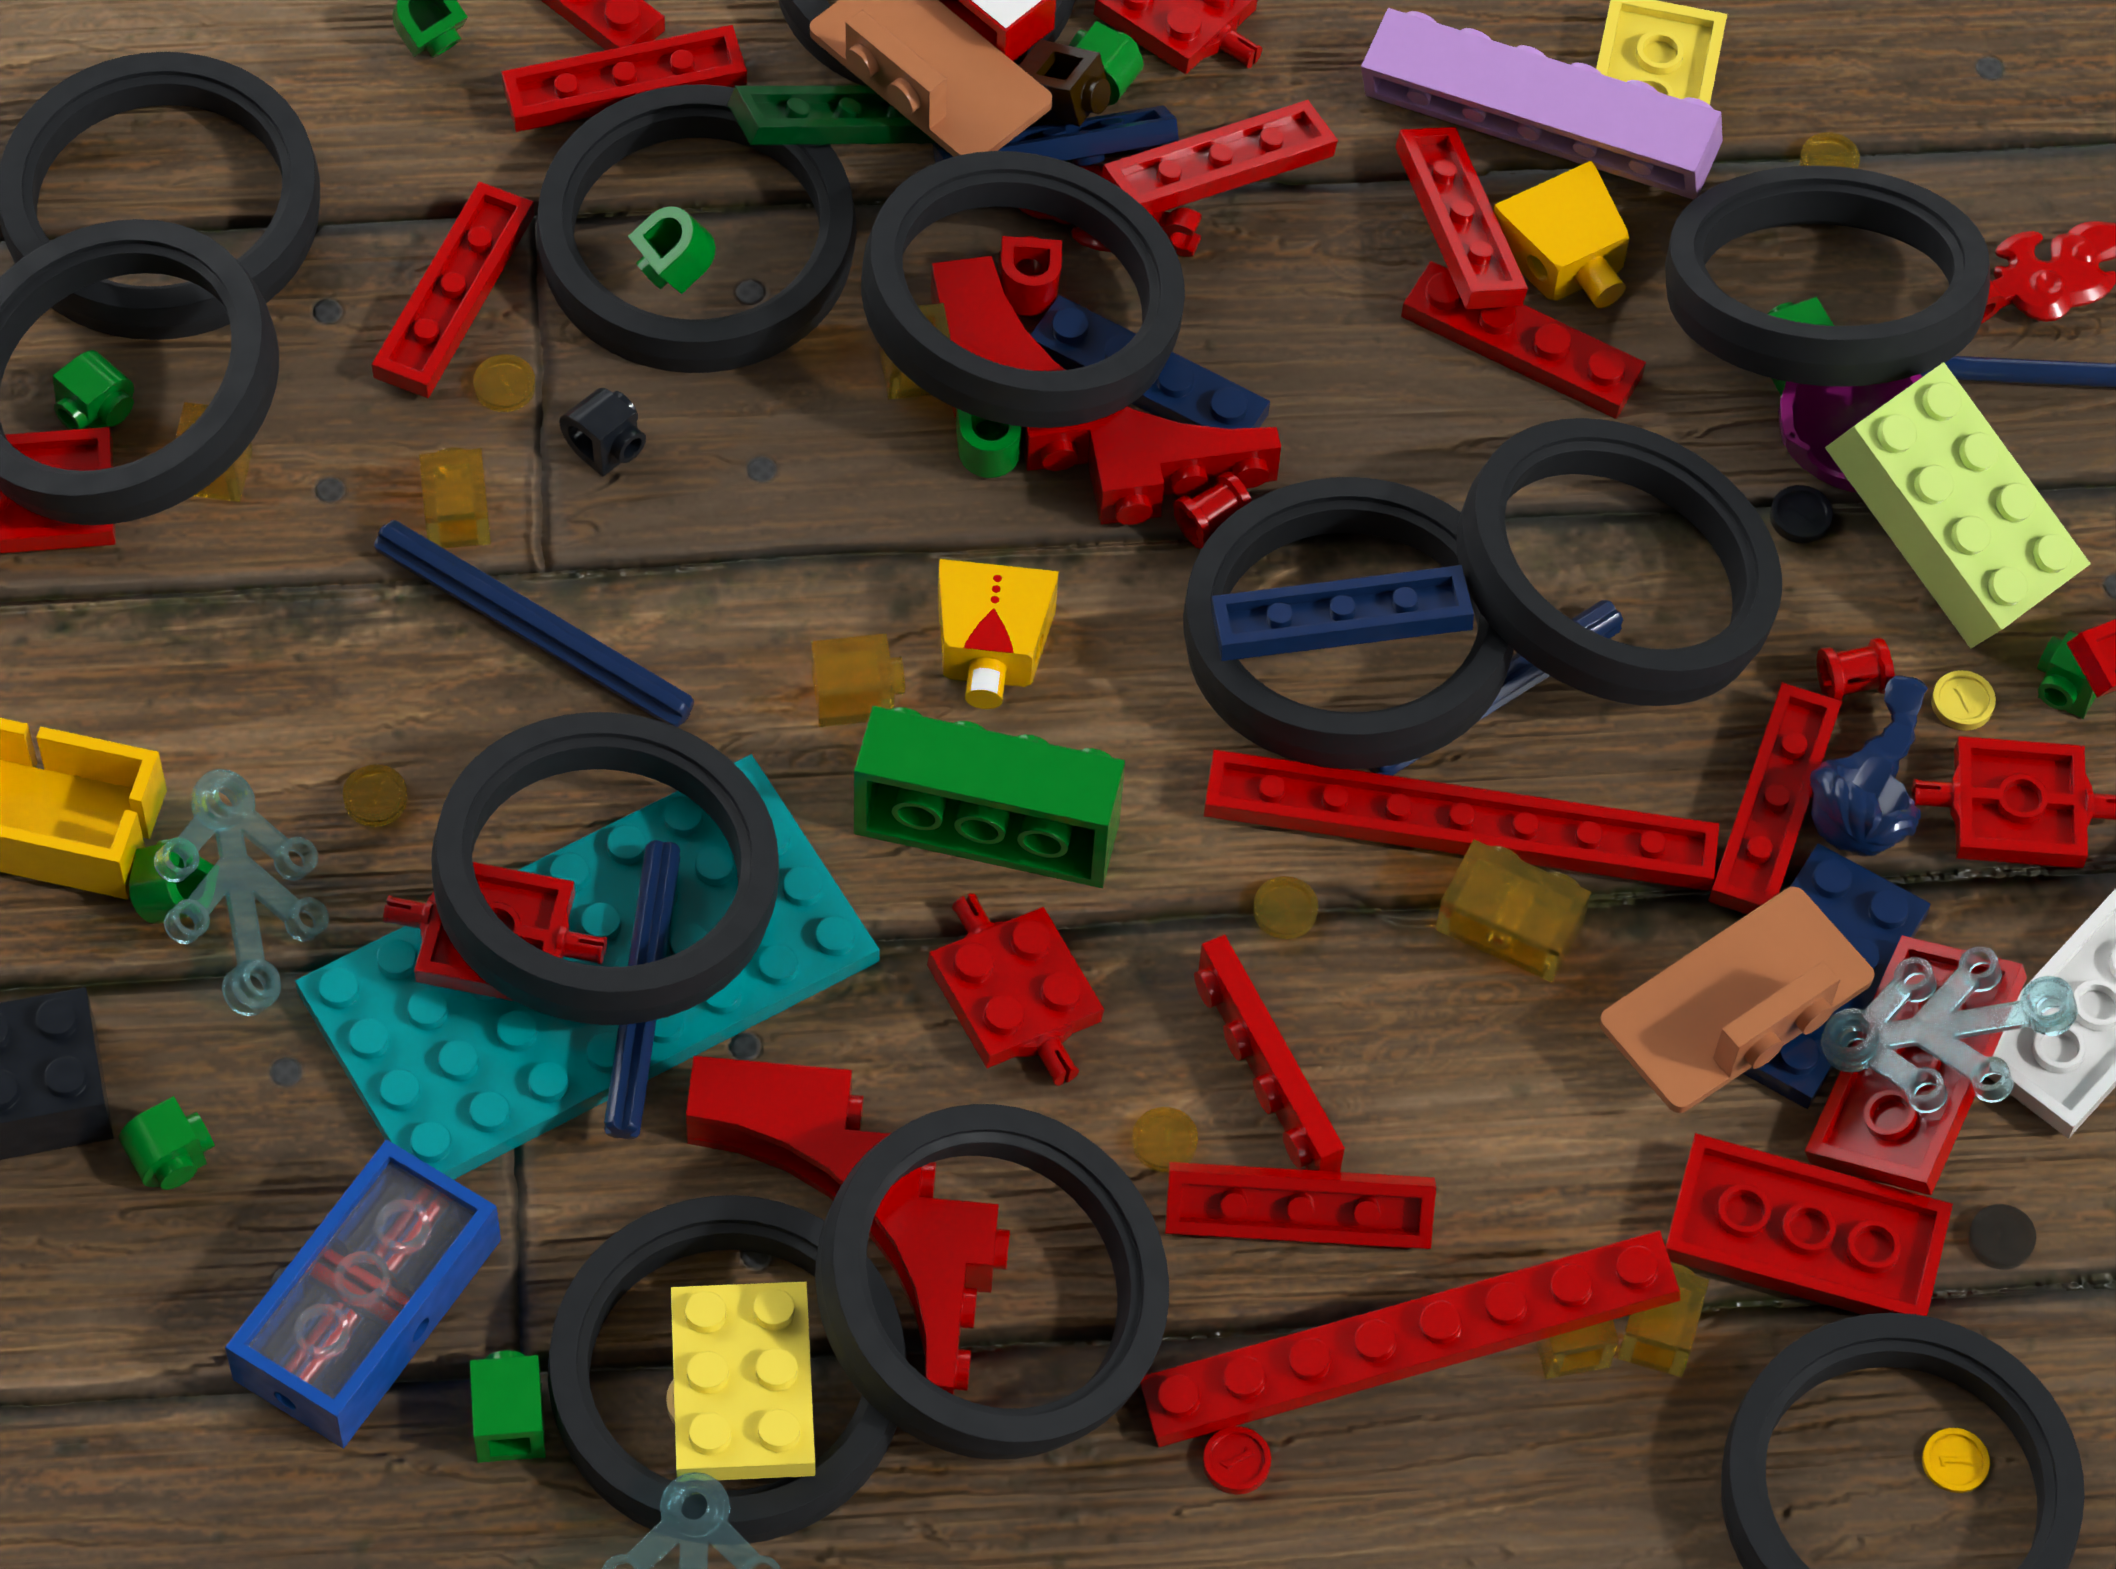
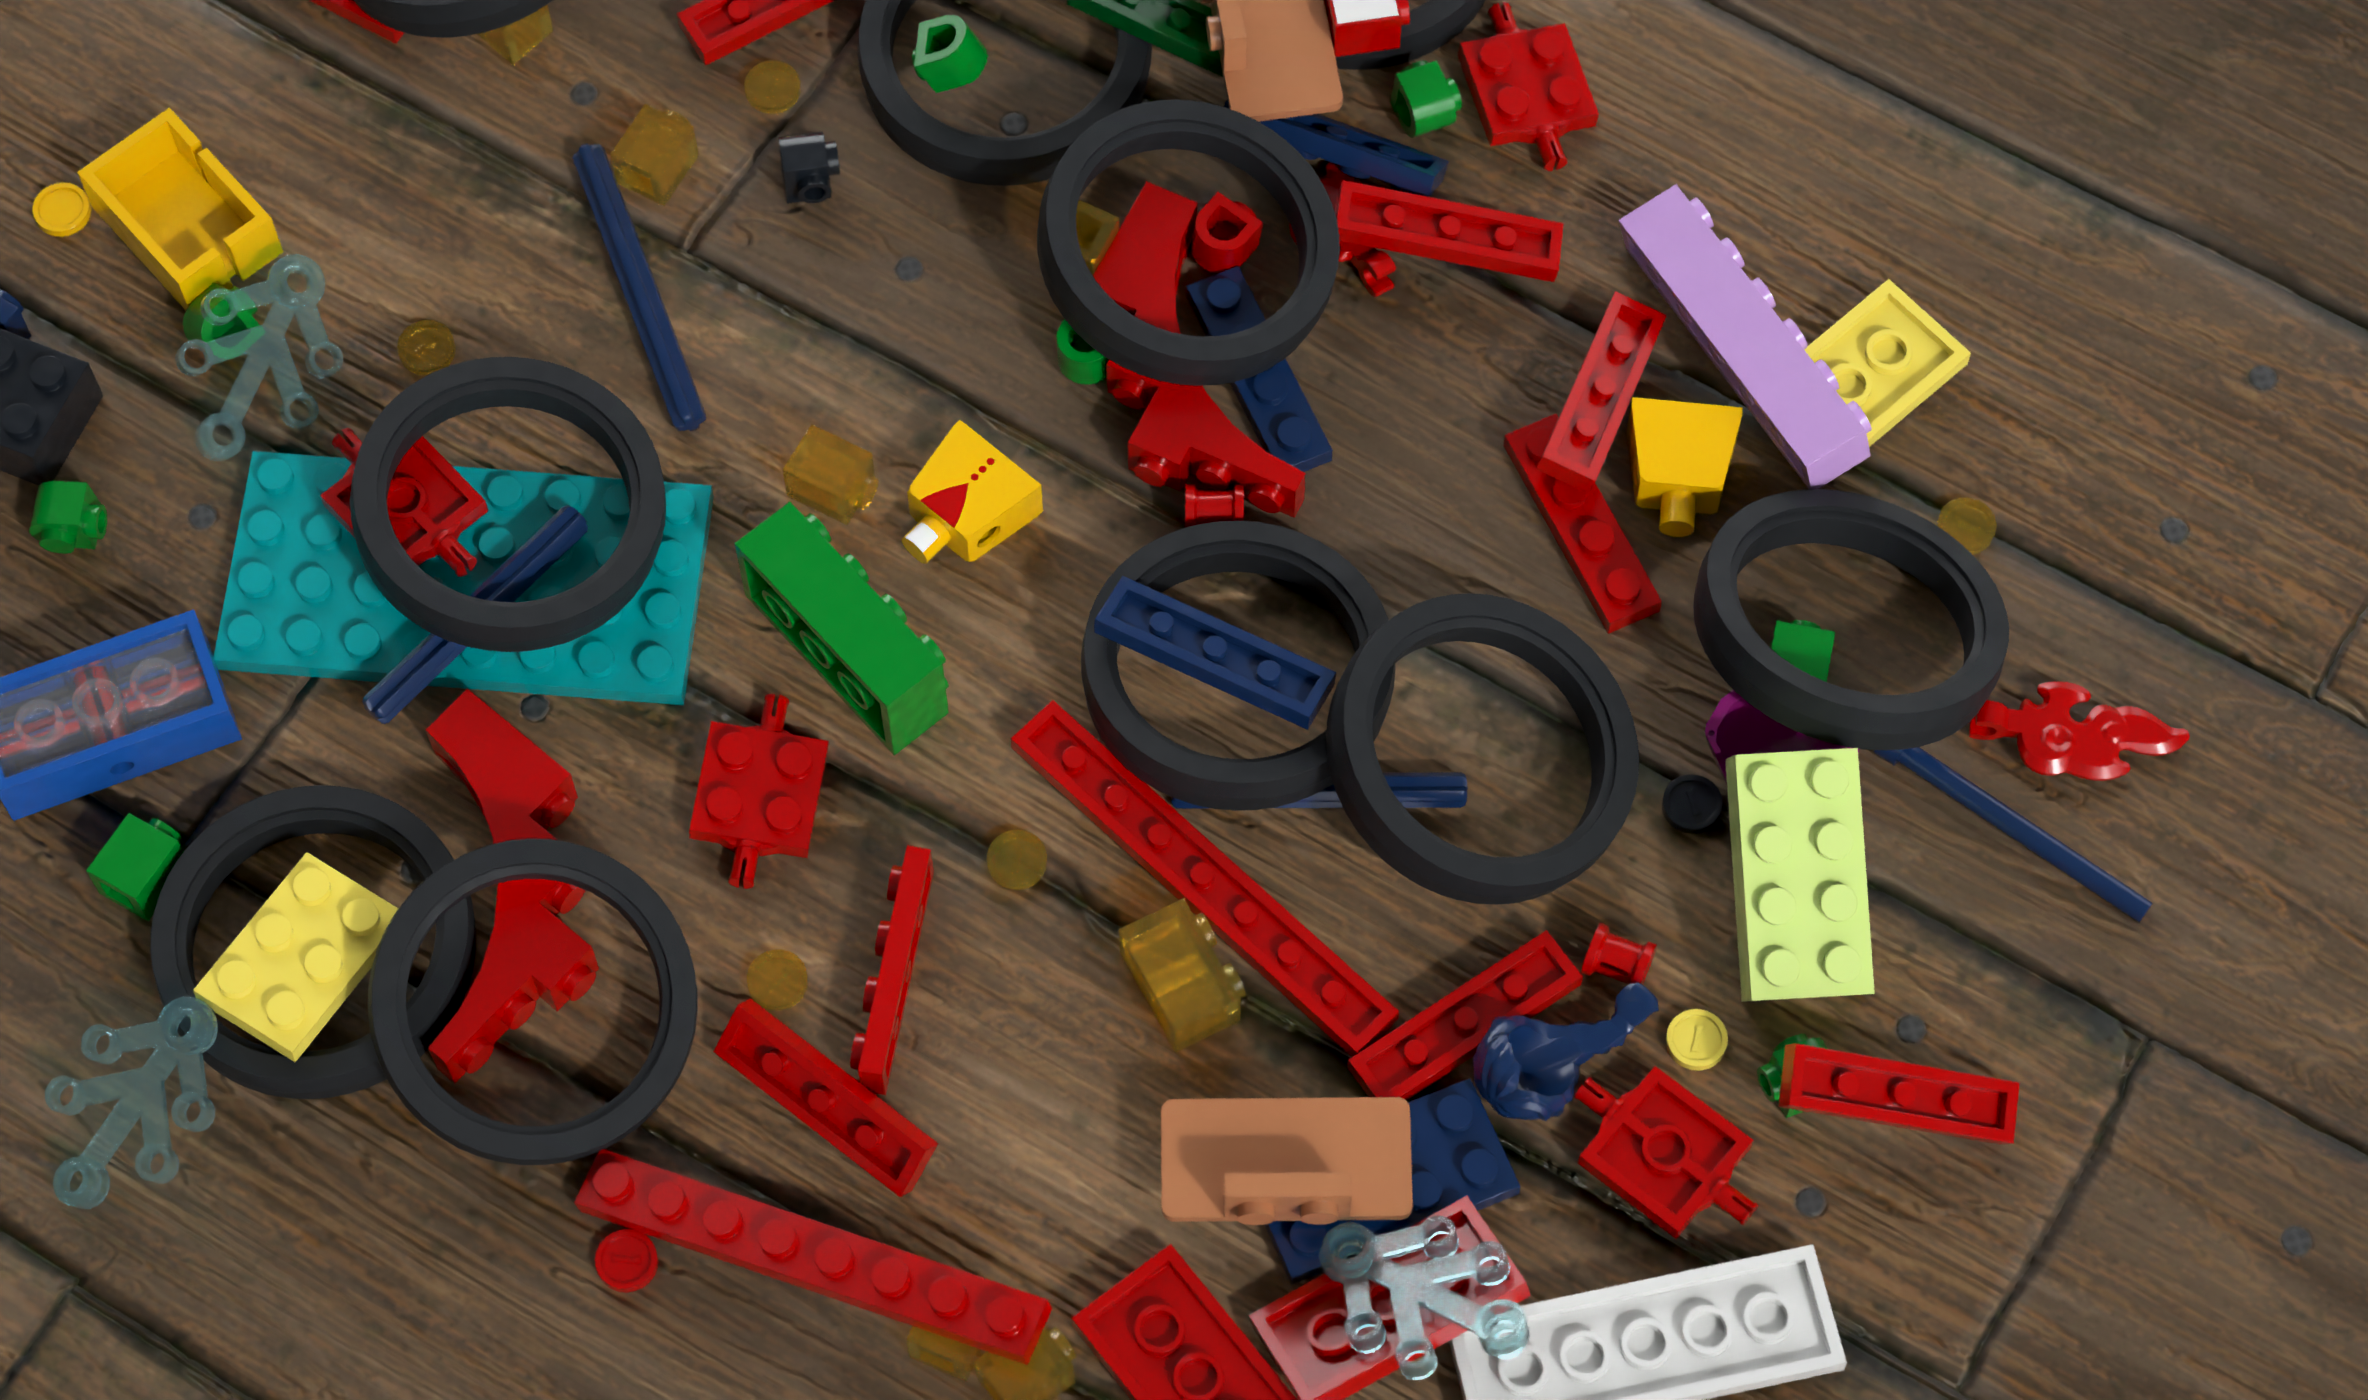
camera: 40 degrees right, 5 degrees up
(1072, 77) = (1377, 109): dark brown brick -> none

